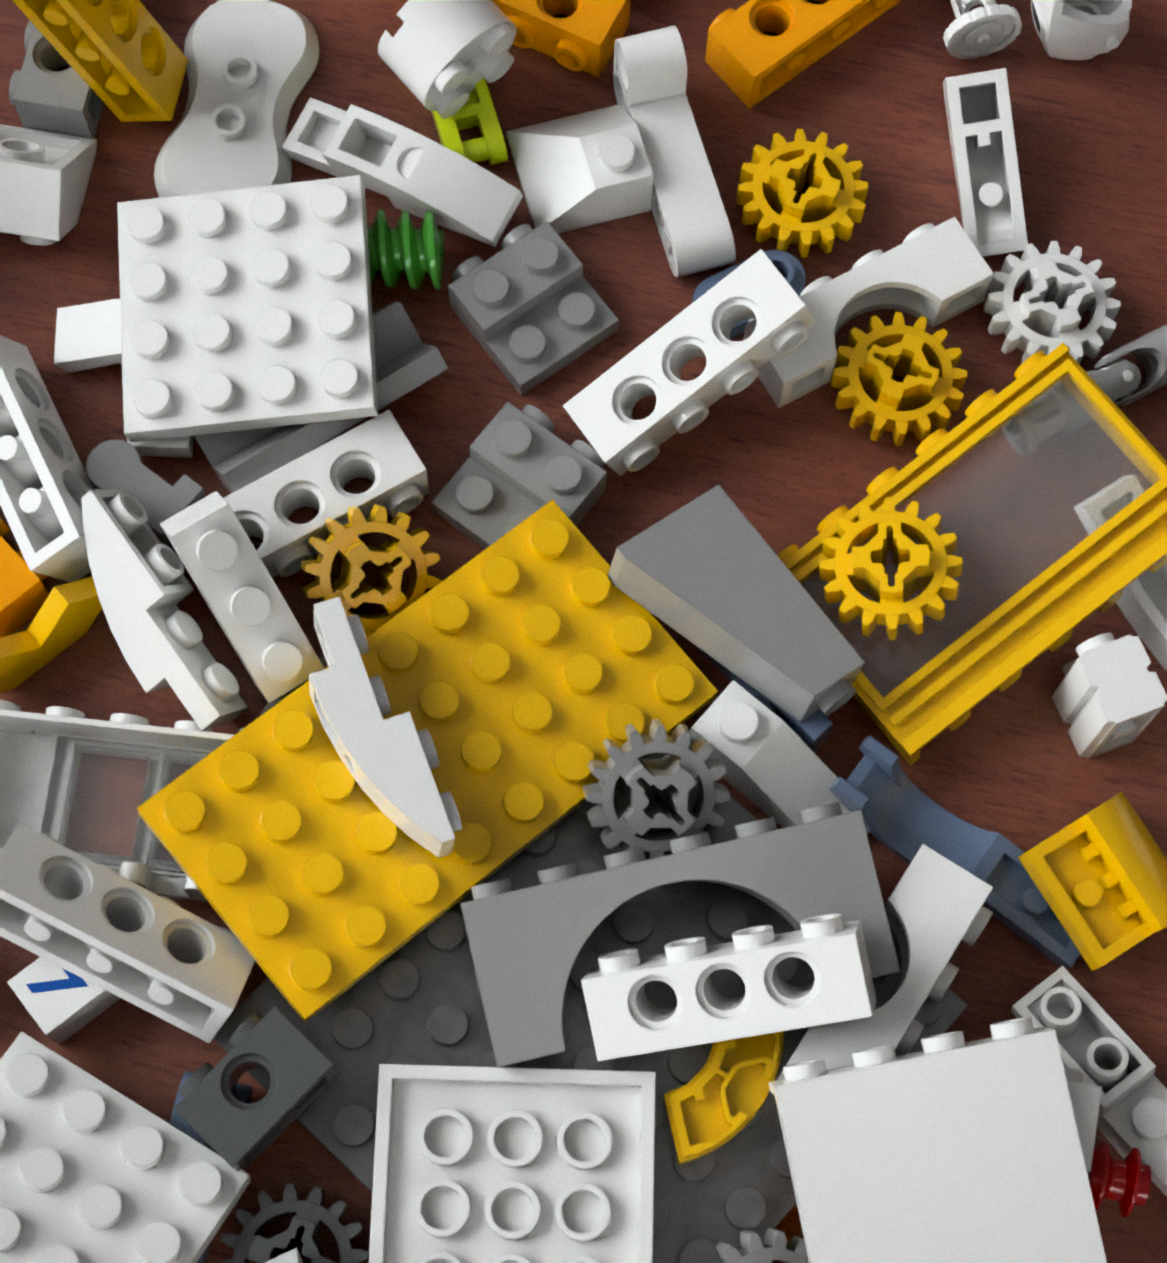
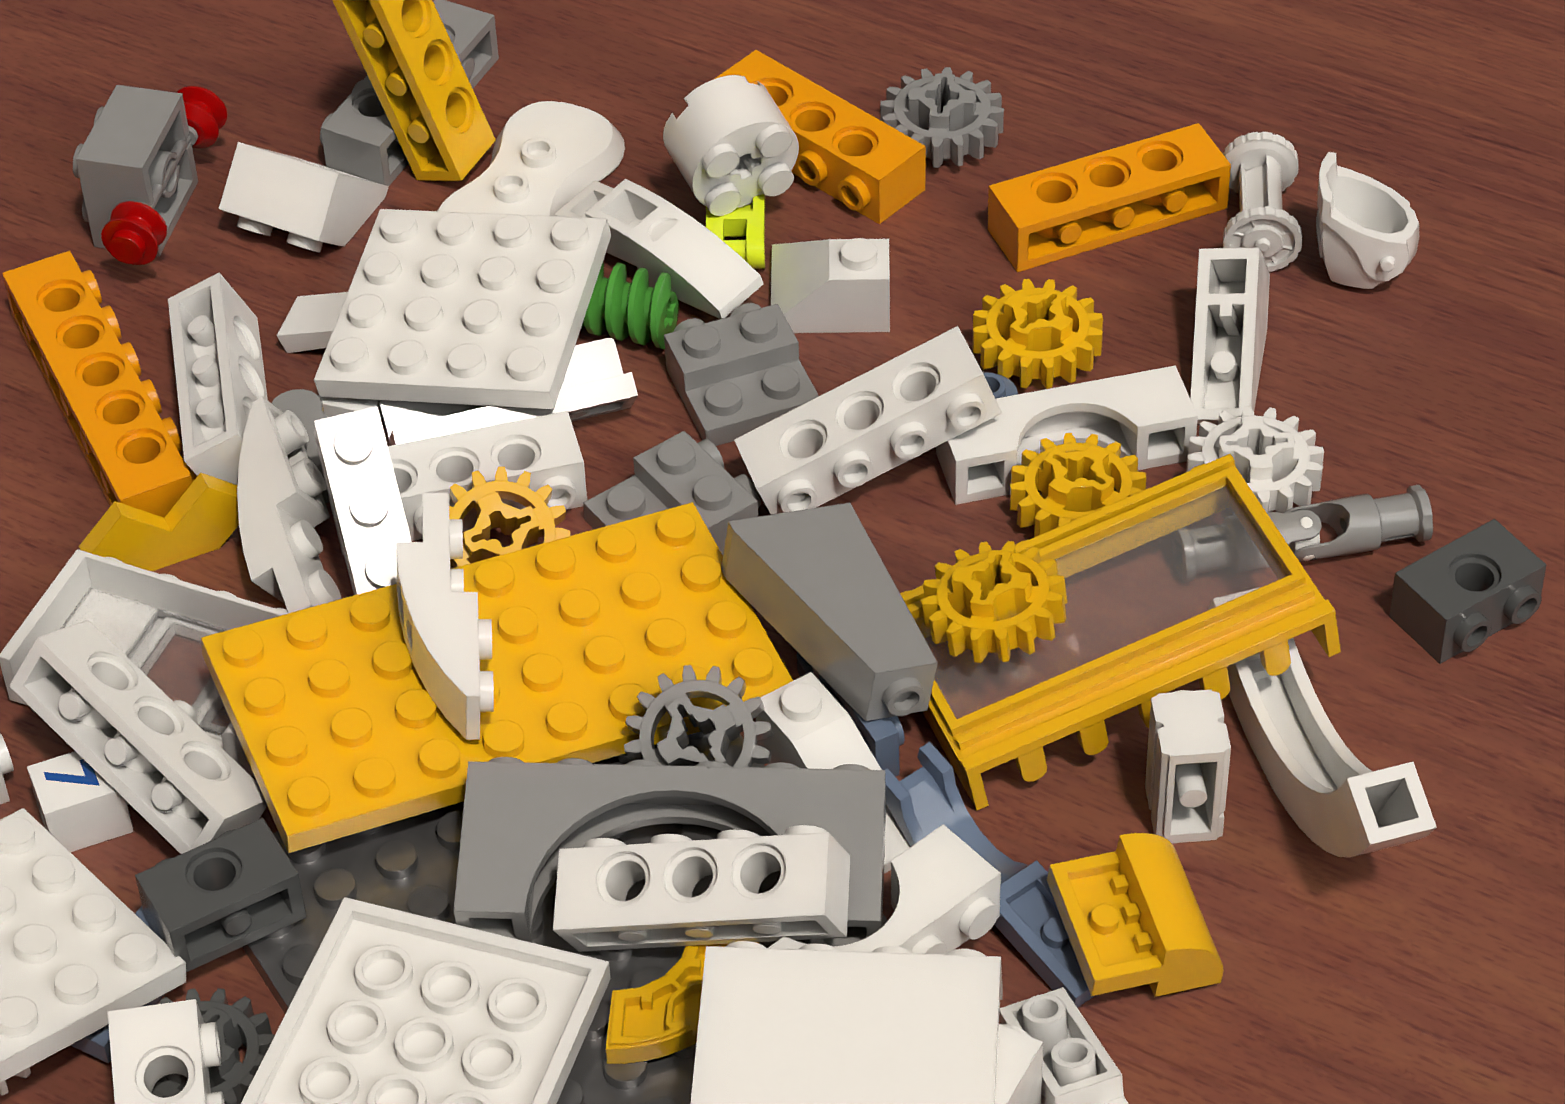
camera: 20 degrees right, 25 degrees down
(685, 197) = (918, 253): white beam -> none

